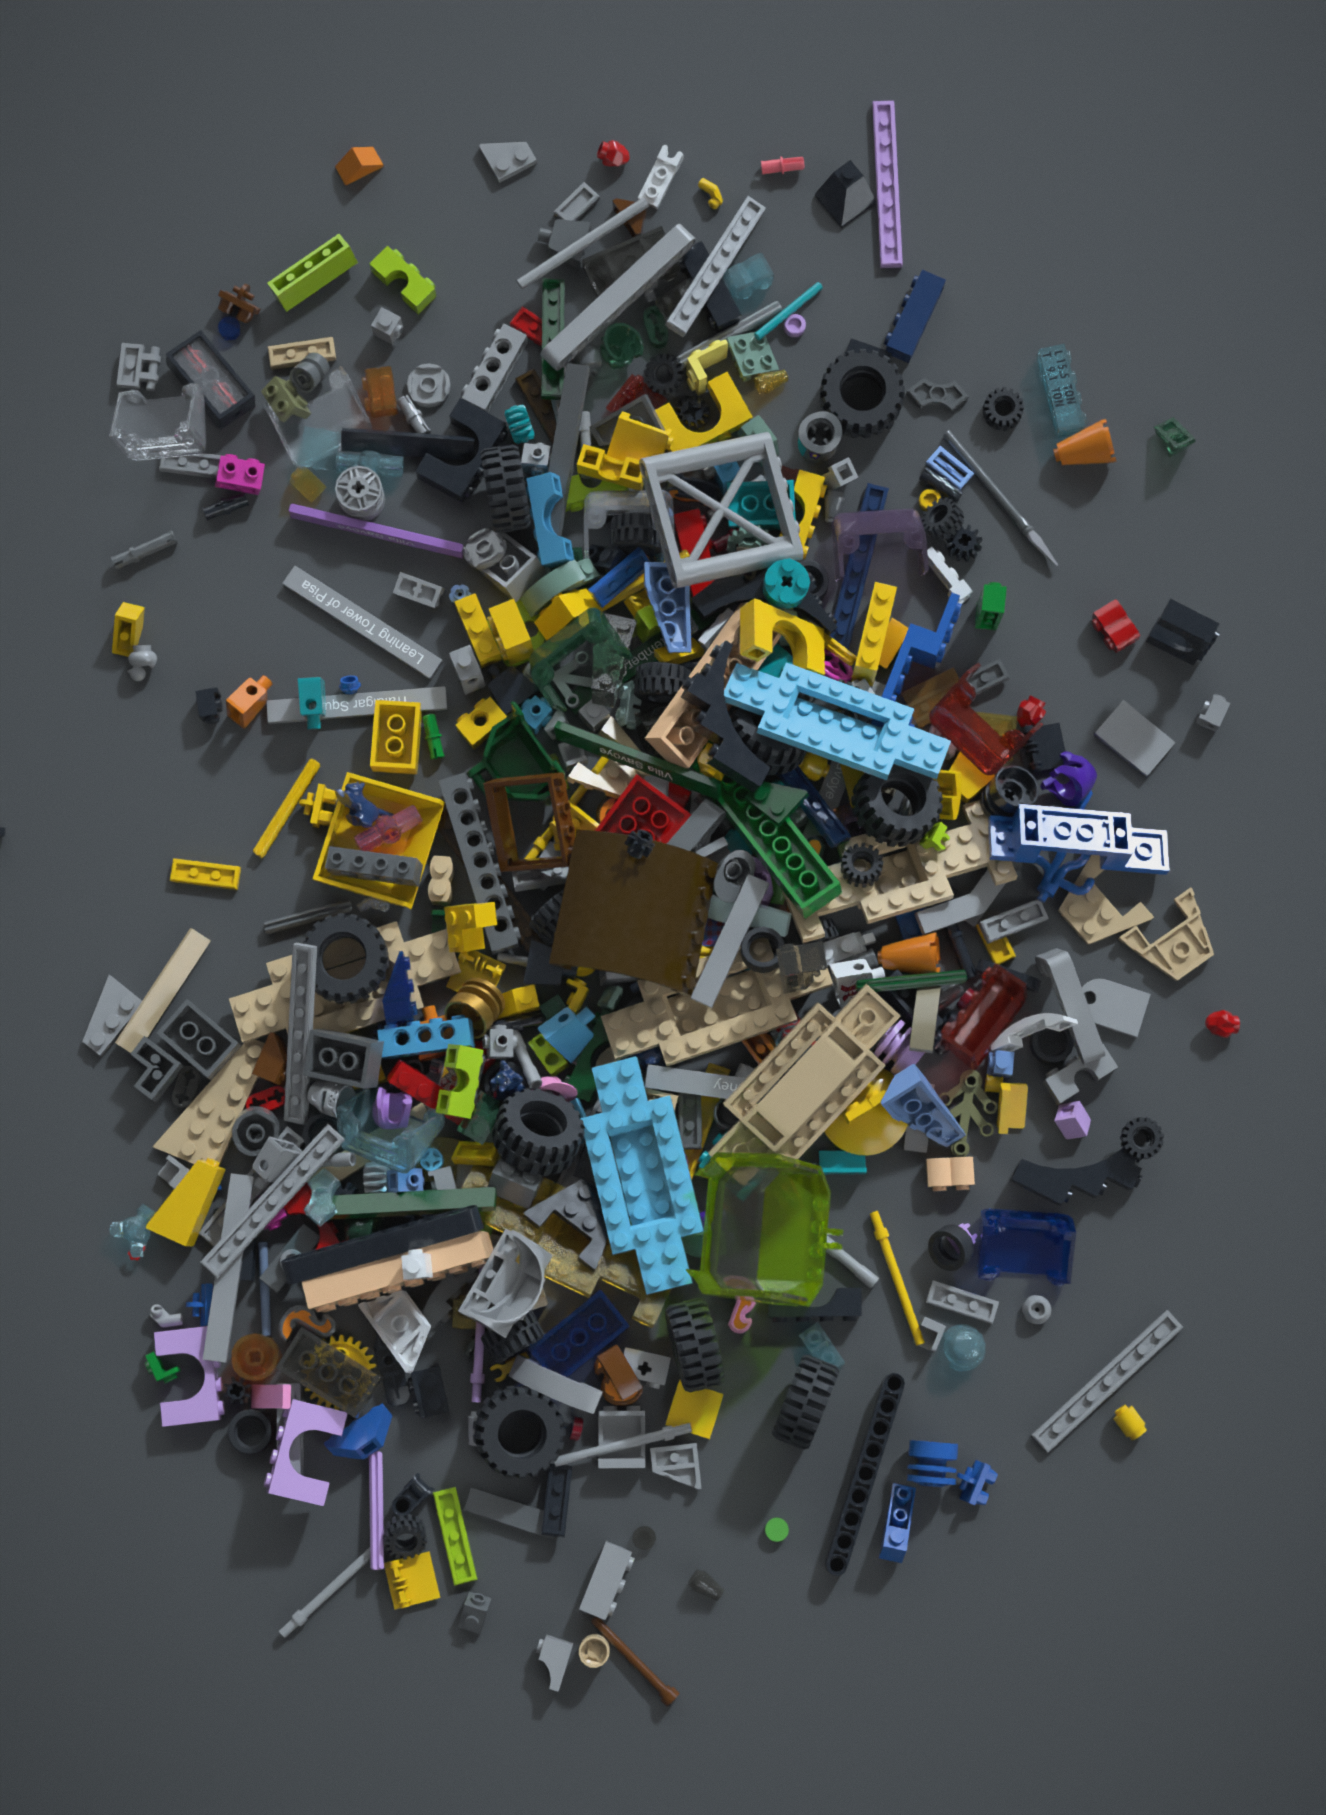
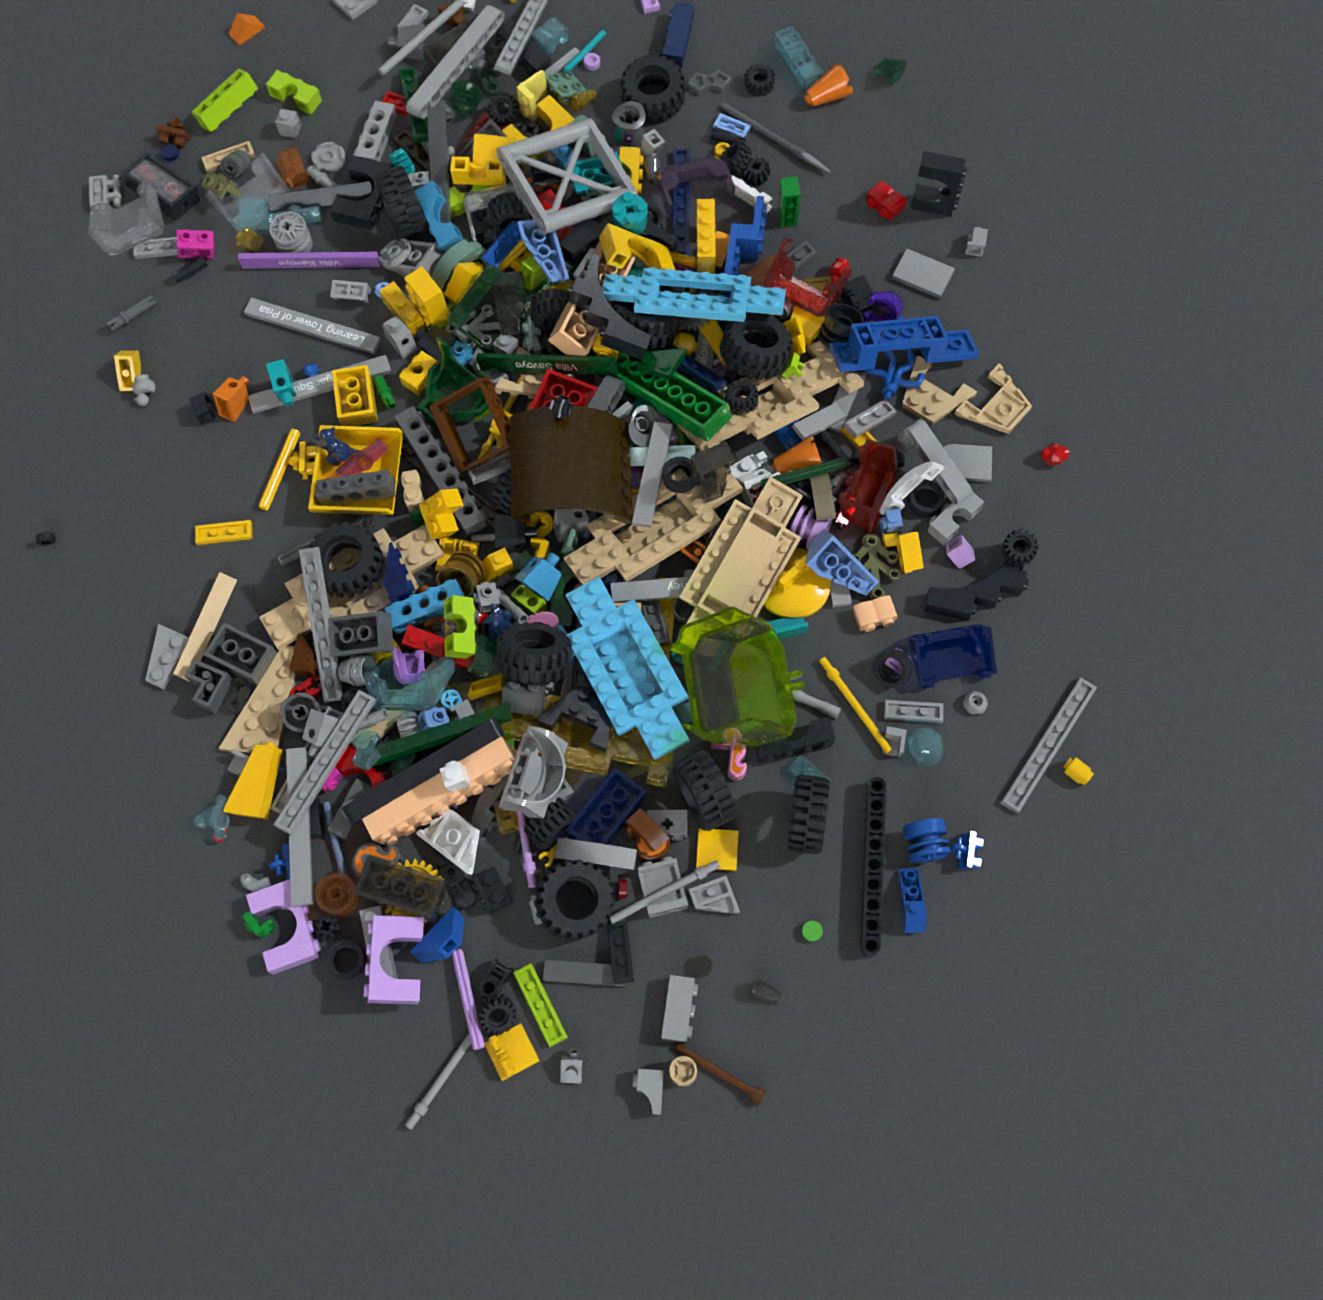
camera: 10 degrees left, 10 degrees down
(271, 1396) = (356, 921): bright pink tile -> none

